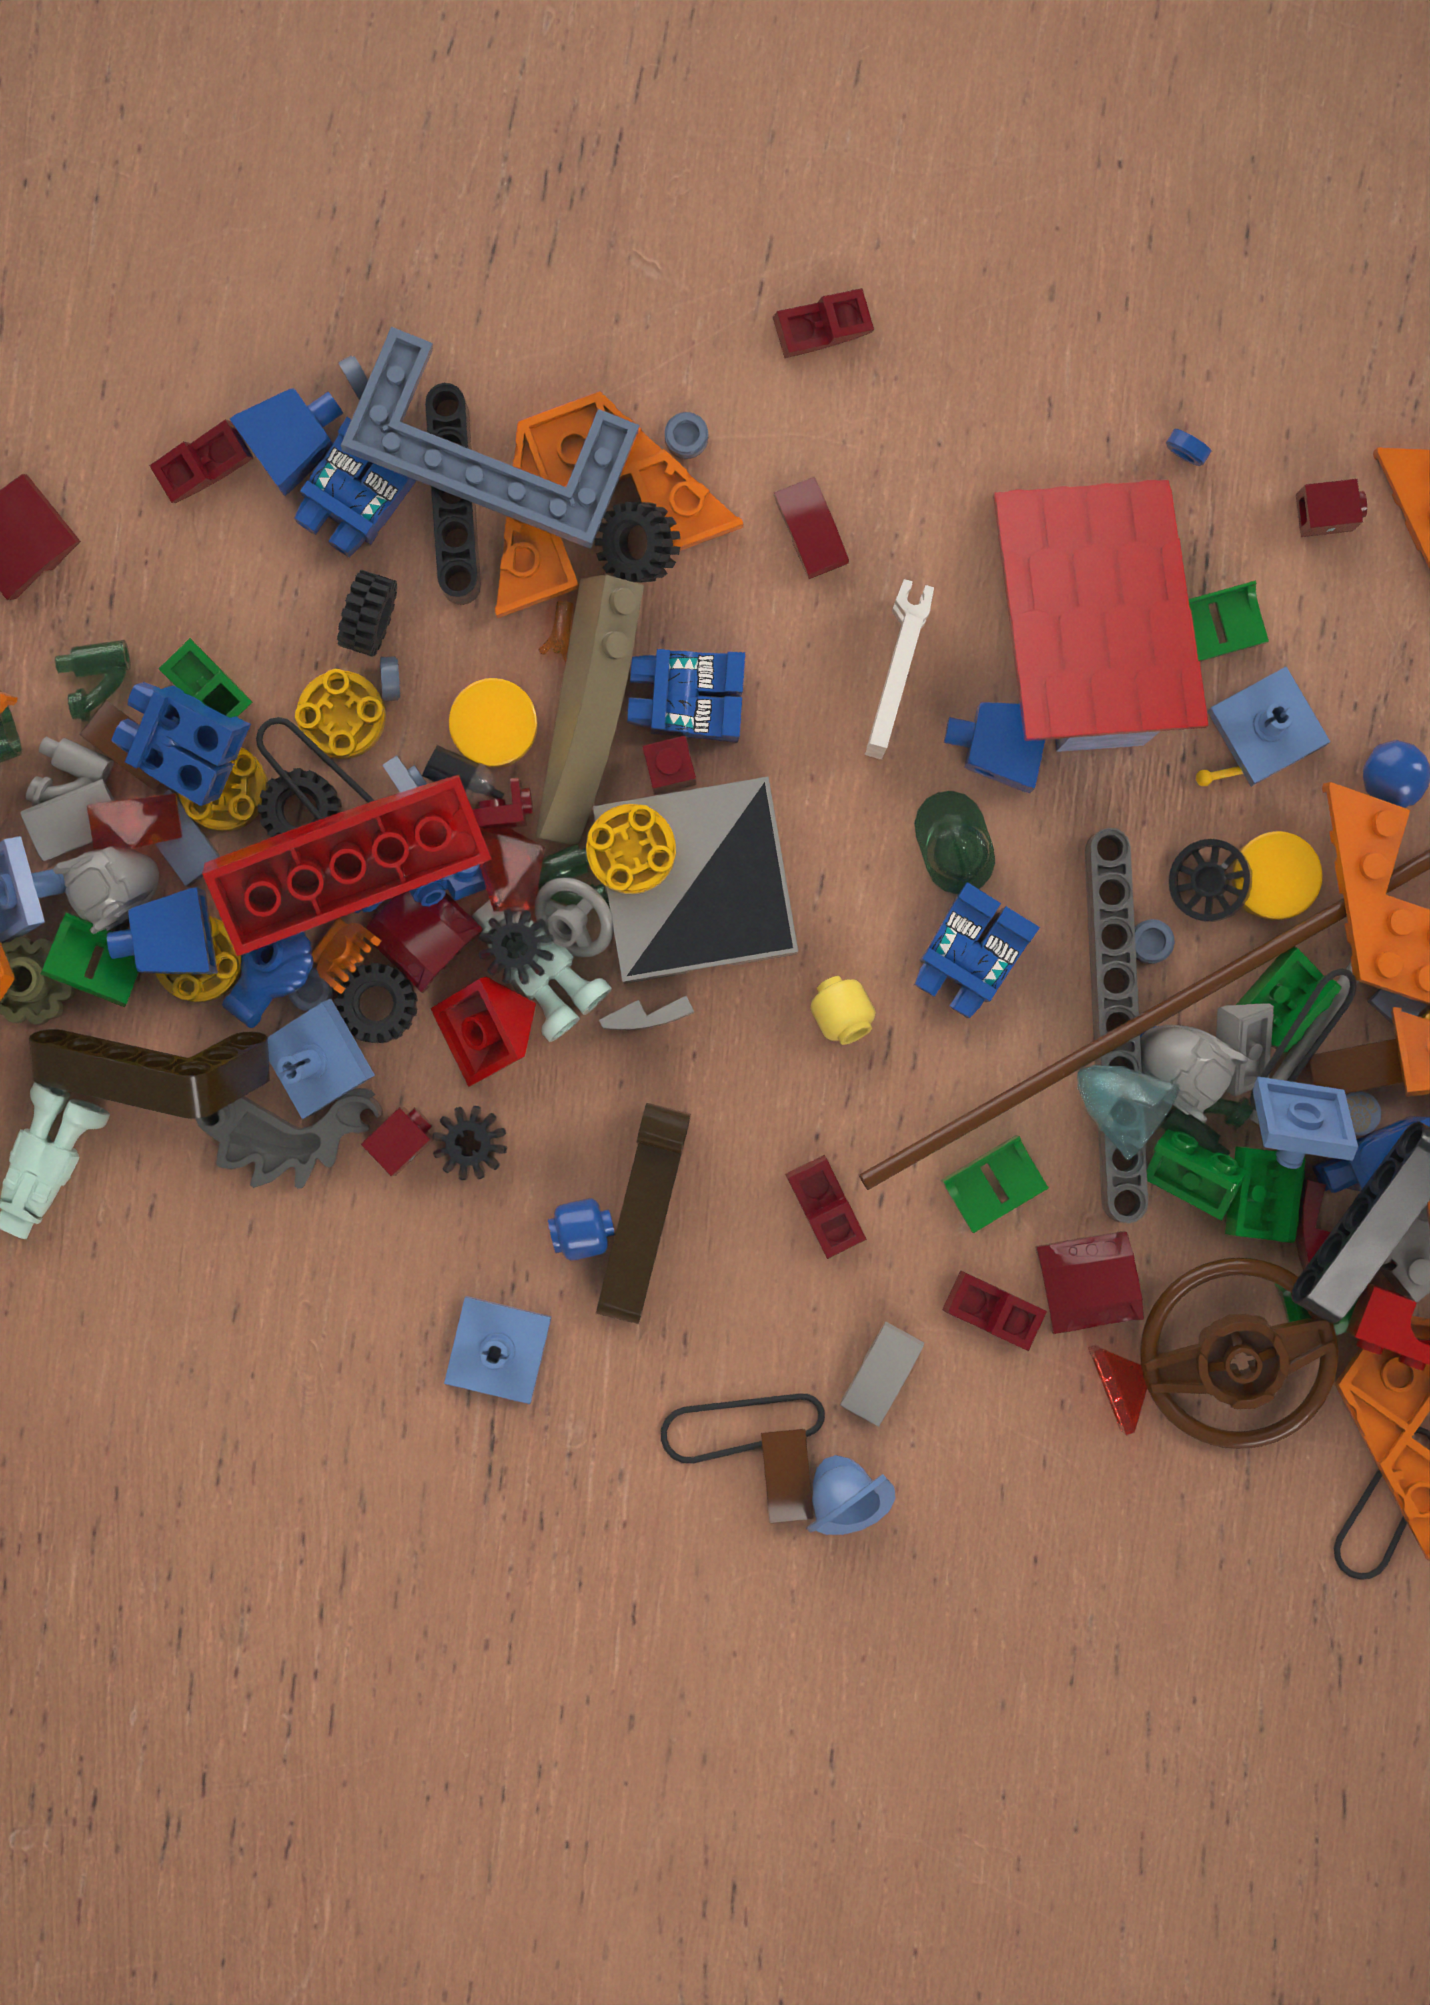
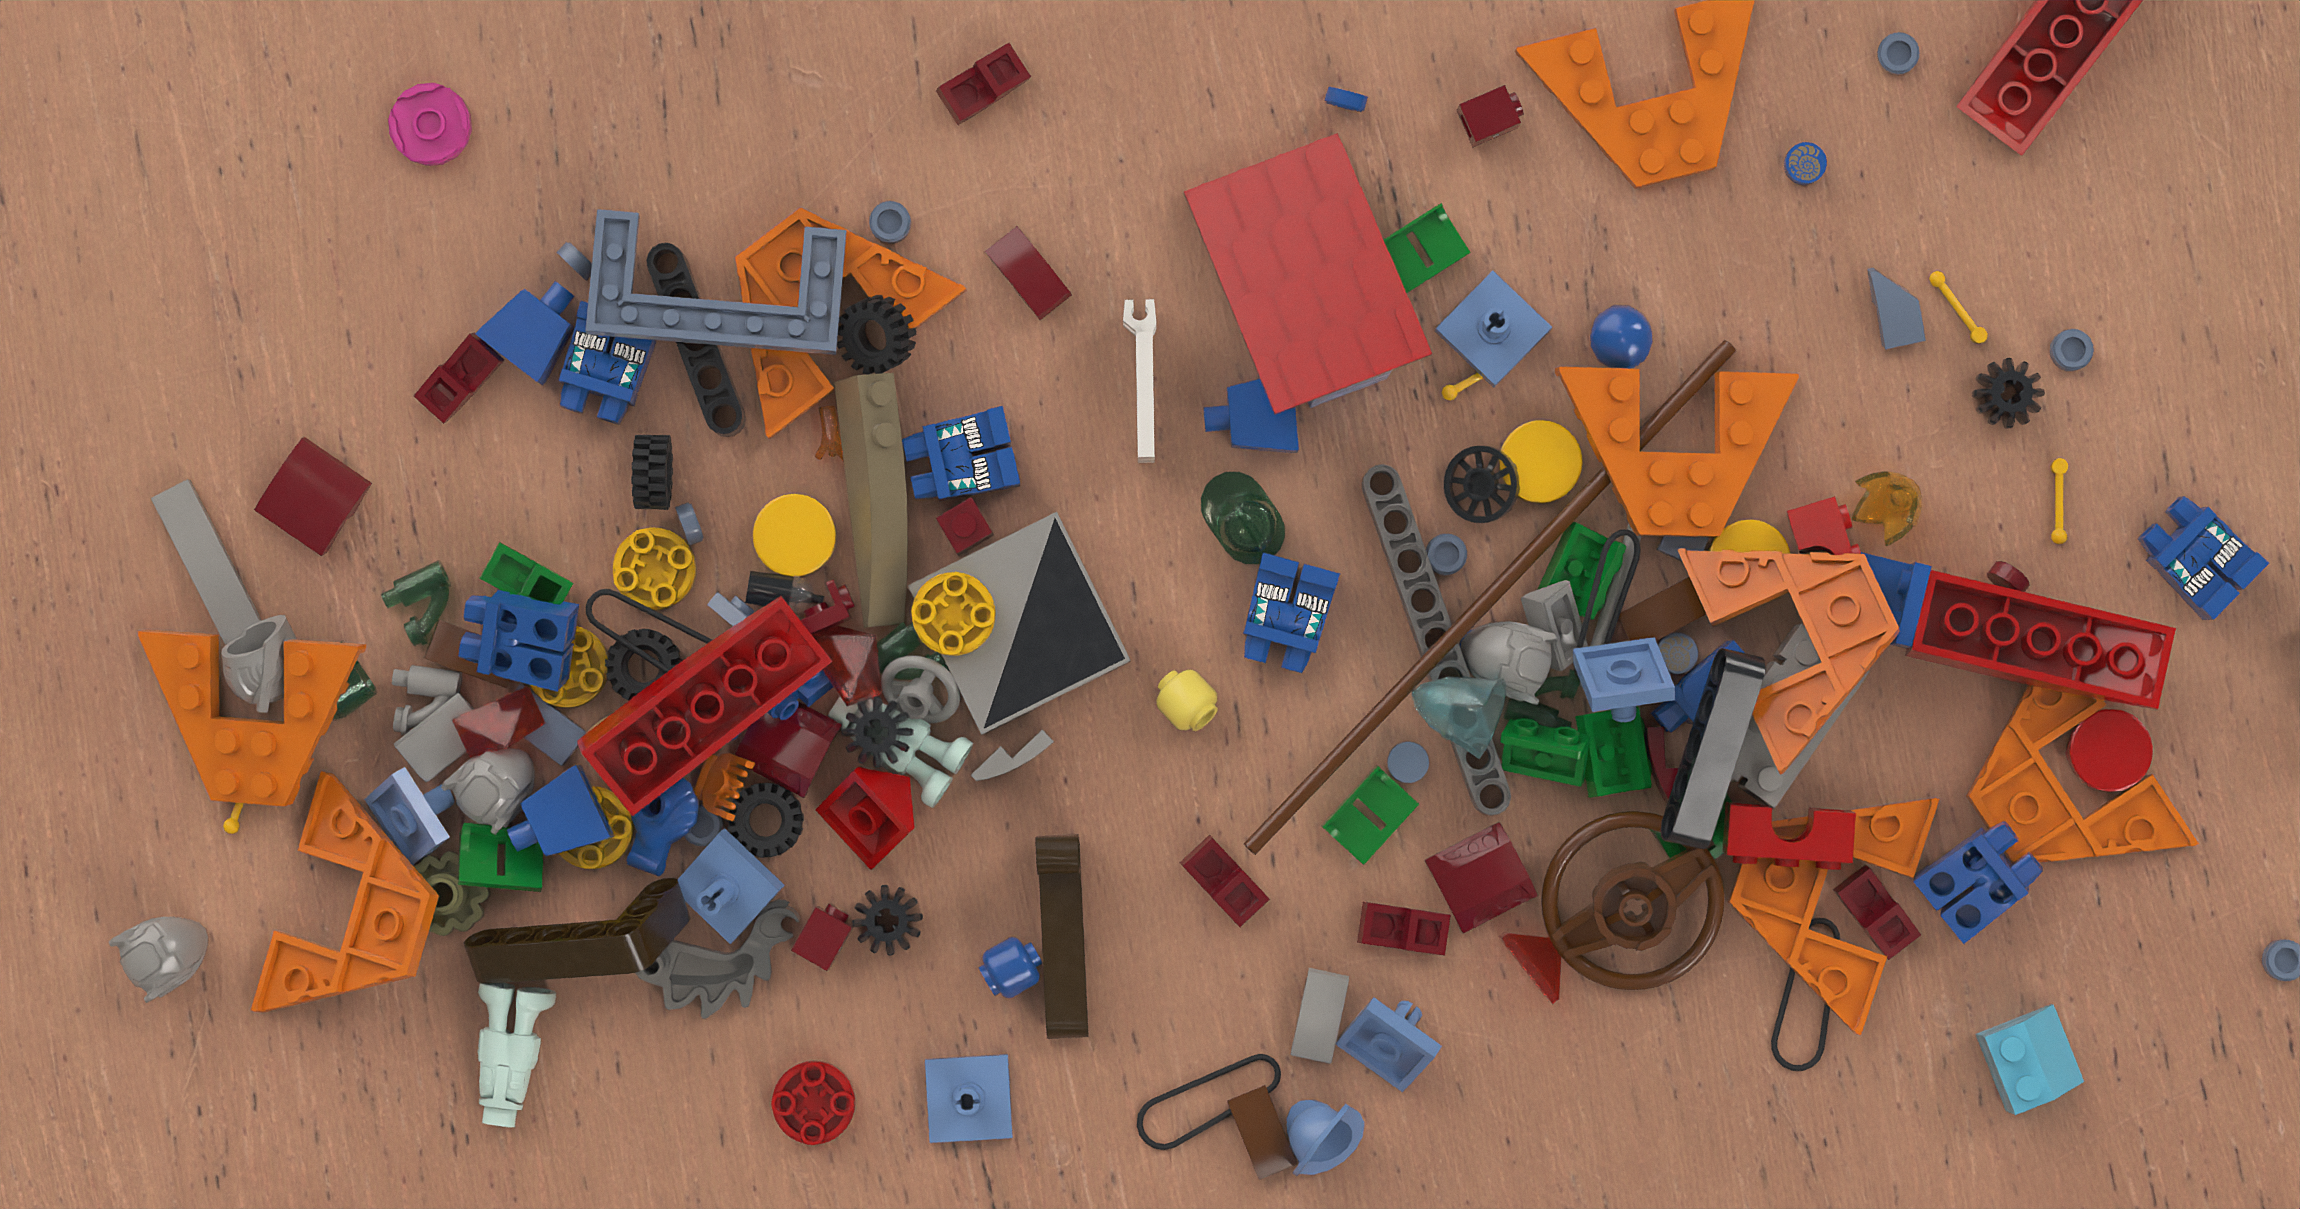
camera: 20 degrees left, 0 degrees up
(250, 198) = (430, 124): none -> dark pink tile
(338, 1306) = (813, 1102): none -> red tile
(946, 1424) = (1389, 1042): none -> medium blue tile
(1049, 1142) = (1408, 762): none -> sand blue tile

